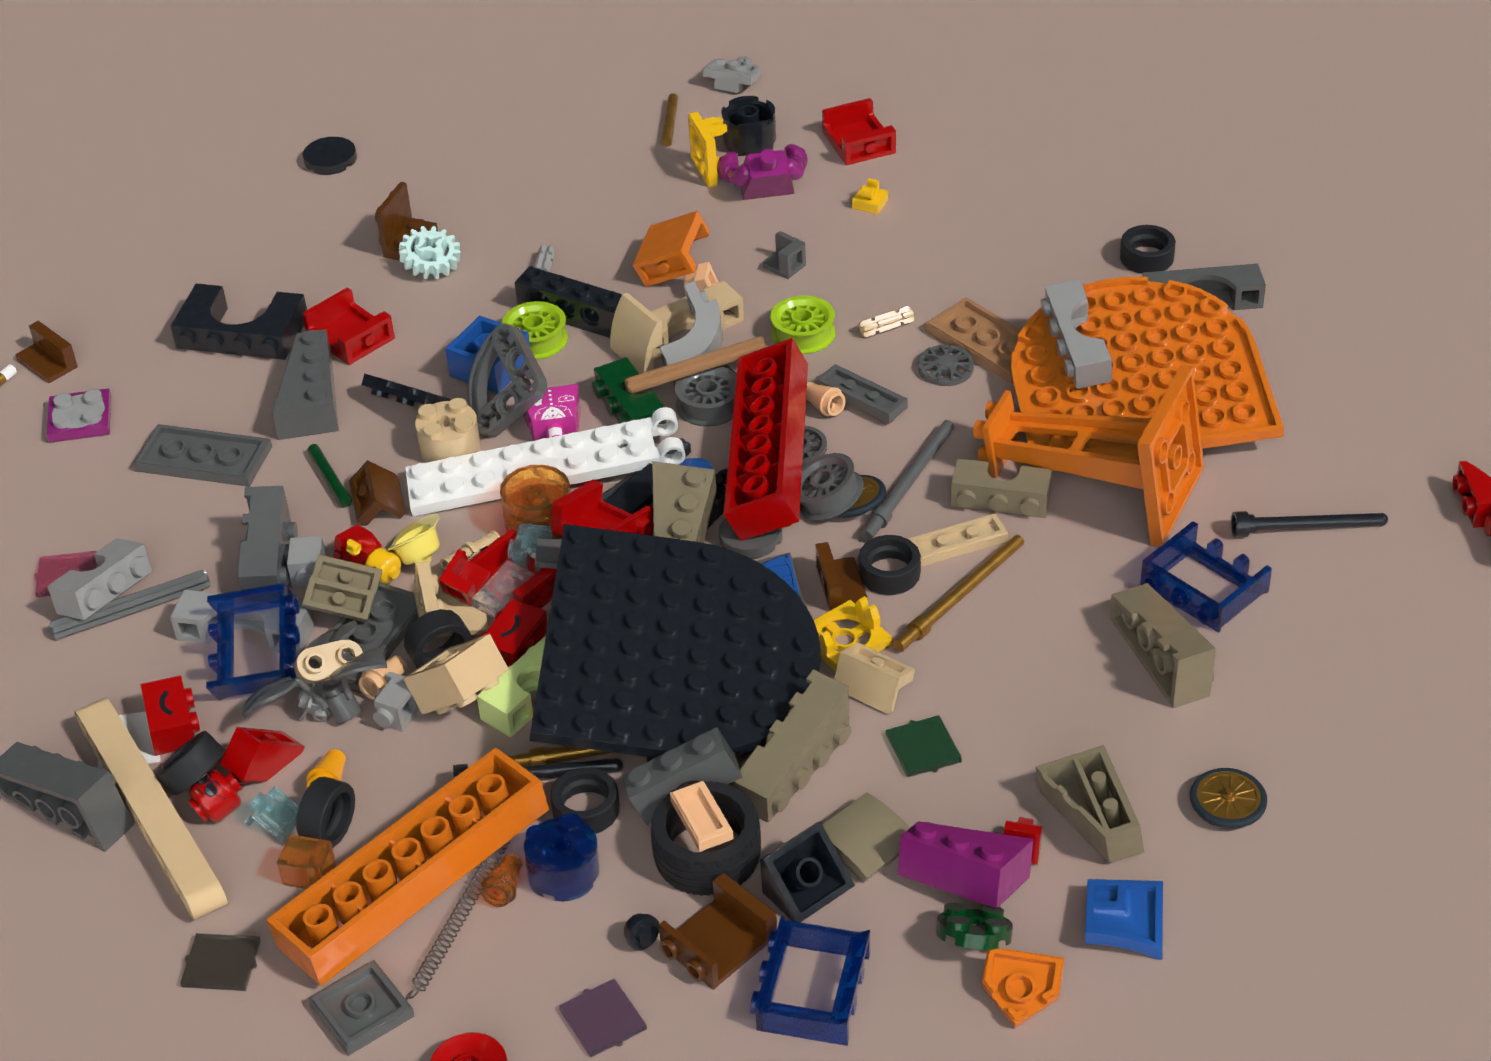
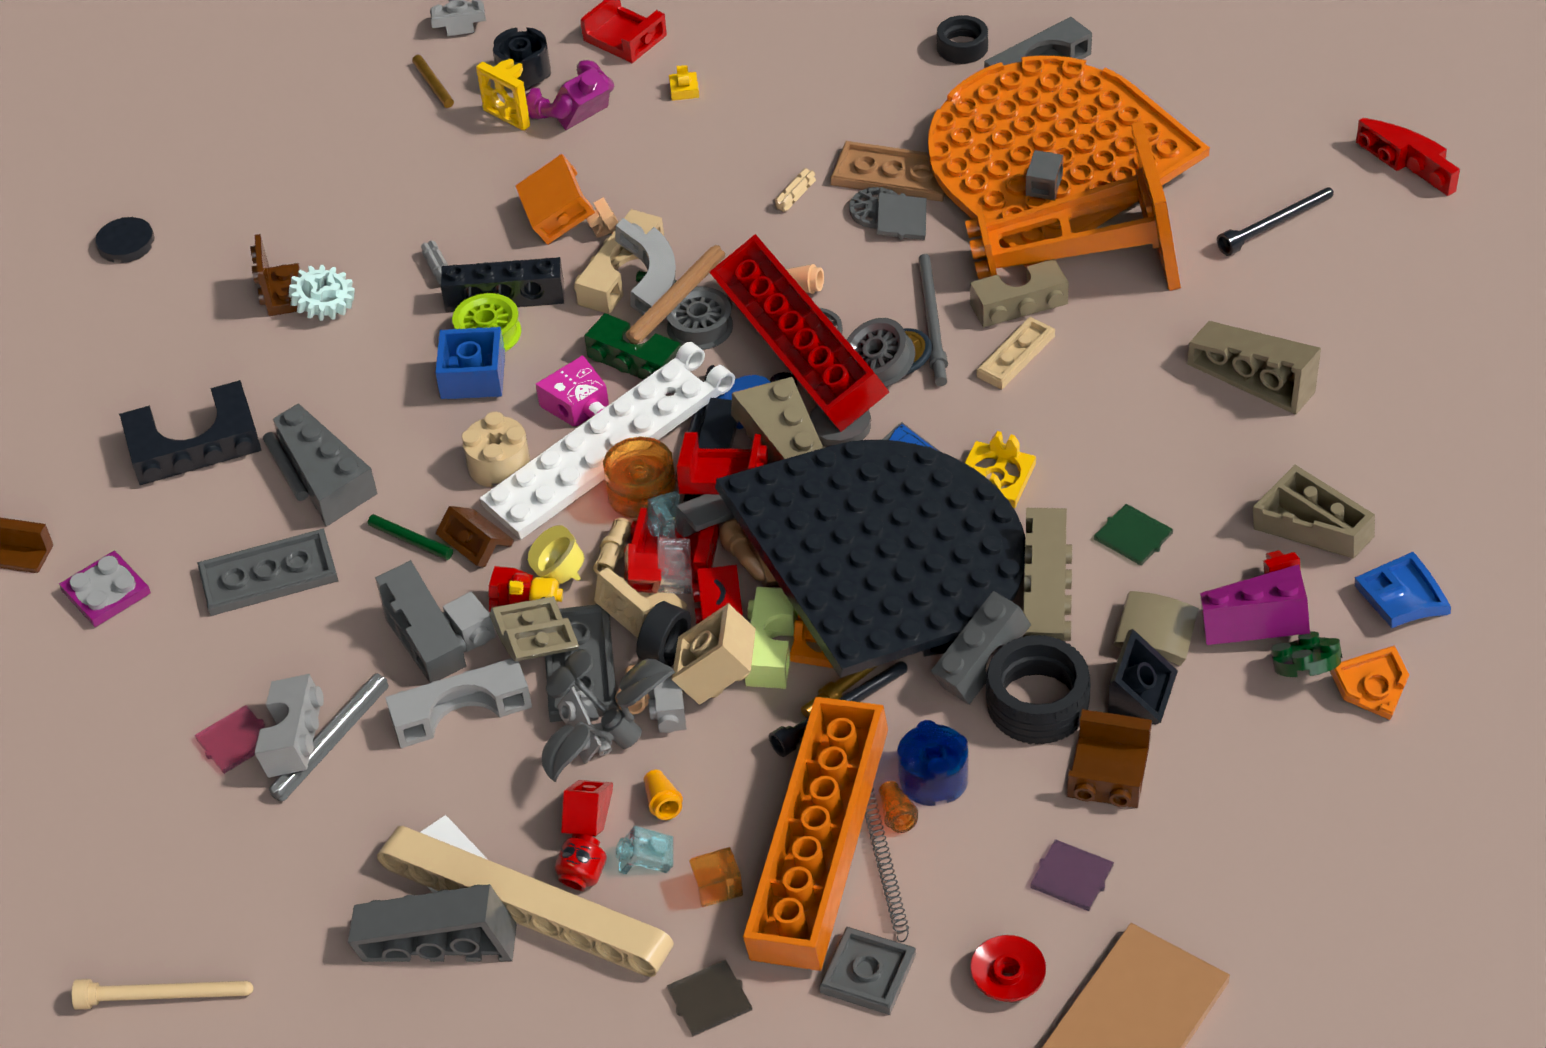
camera: 30 degrees left, 5 degrees up
(168, 713) = (468, 814): red brick -> none
(190, 763) = (537, 843): black tyre -> none
(223, 634) = (528, 690): clear blue window -> none
(326, 810) = (701, 822): black tyre -> none
(328, 657) = (593, 693): tan plate -> none
(349, 327) = (315, 392): red panel -> none
(405, 394) = (420, 432): black wing -> none
(518, 388) = (541, 380): dark grey beam -> none
(587, 780) = (907, 688): black tyre -> none
(635, 333) = (594, 287): tan slope -> none
(641, 931) = (1048, 790): black plate -> none
(701, 816) = (1035, 670): light nougat tile -> none
(789, 256) = (656, 165): dark grey panel -> none
(805, 320) = (726, 220): lime wheel -> none
(807, 1022) = (1183, 770): clear blue window -> none
(838, 577) = (948, 428): reddish brown panel -> none
(865, 394) = (834, 260): dark grey plate -> none
(872, 676) = (1054, 491): tan panel -> none
(889, 581) = (983, 380): black tyre -> none
(922, 625) = (1050, 435): pearl gold bar -> none
(958, 380) = (901, 216): none -> dark grey piece
(1085, 357) = (1006, 151): light grey arch -> none
(1100, 390) = (1044, 175): none -> dark grey brick
(1189, 599) = (1249, 319): clear blue window -> none
(1228, 798) = (1400, 465): pearl gold wheel -> none

